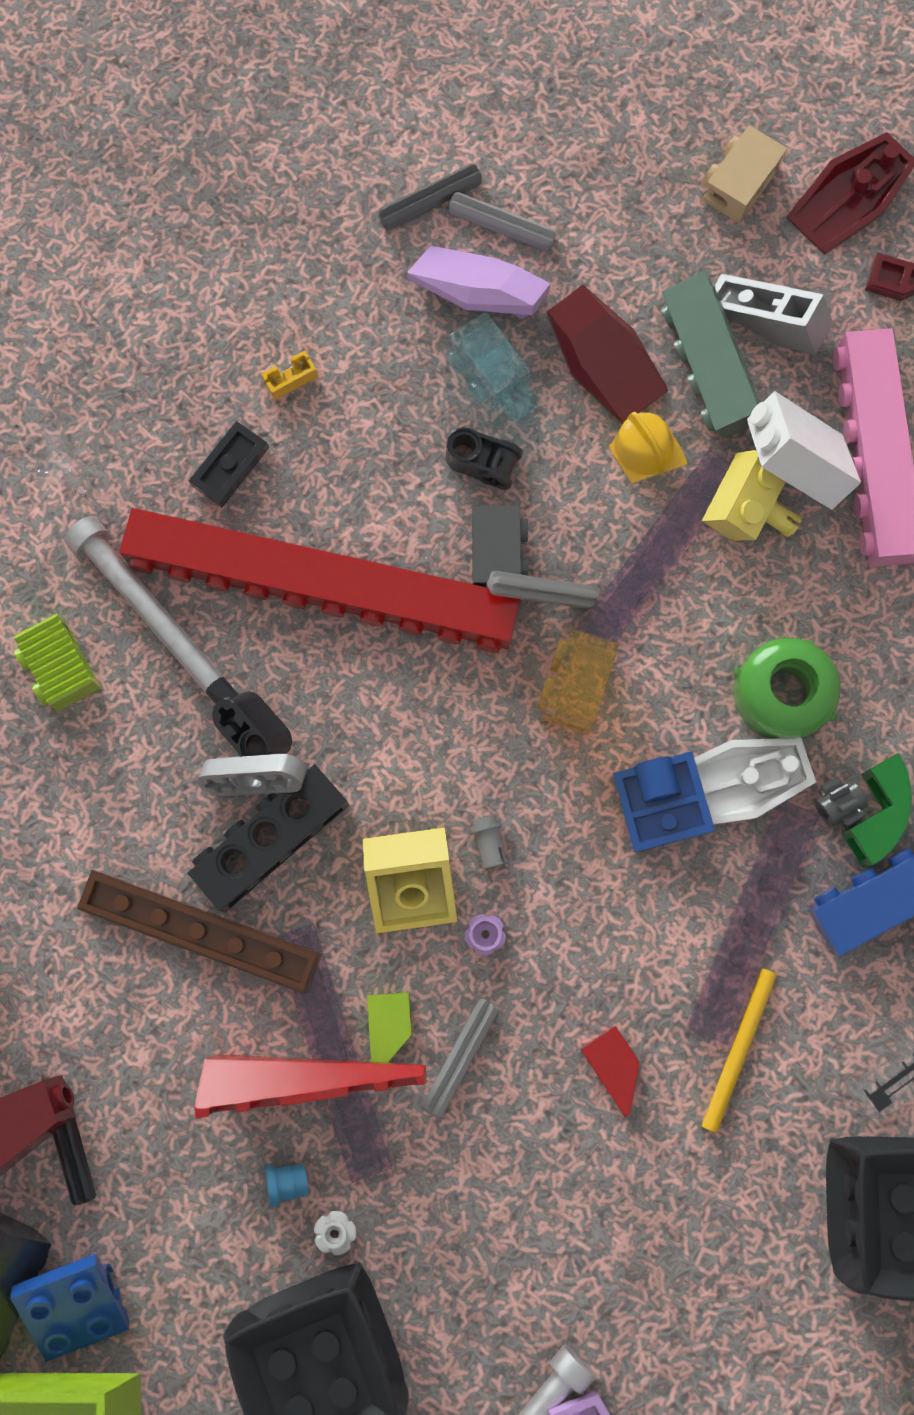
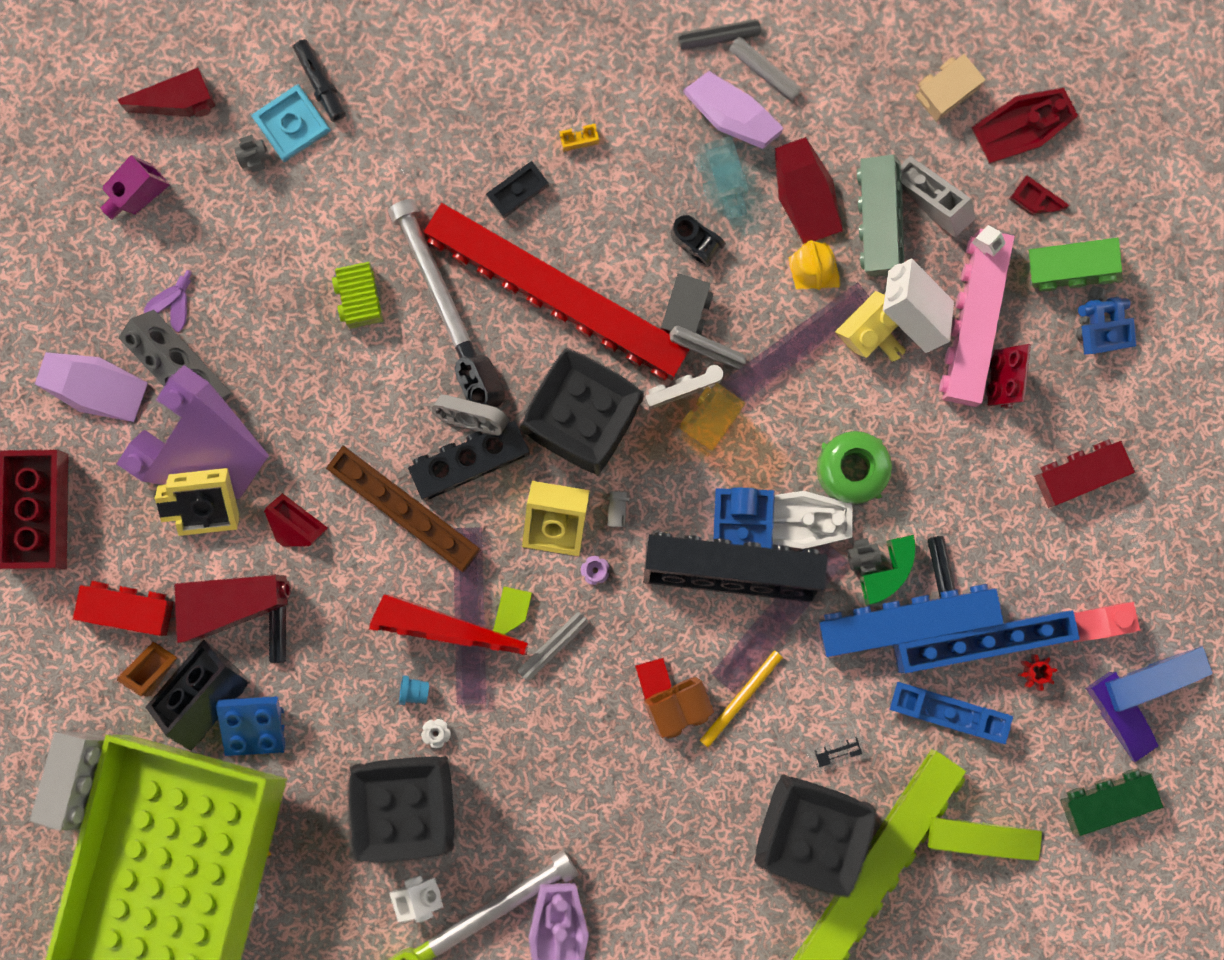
camera: 10 degrees right, 5 degrees up
(51, 998) = (292, 524): none -> dark red slope
(400, 722) = (581, 411): none -> black piece
(527, 652) = (684, 387): none -> white plate
(660, 1090) = (679, 707): none -> dark orange brick
(676, 871) = (735, 567): none -> black brick
(865, 341) = (989, 241): none -> piece

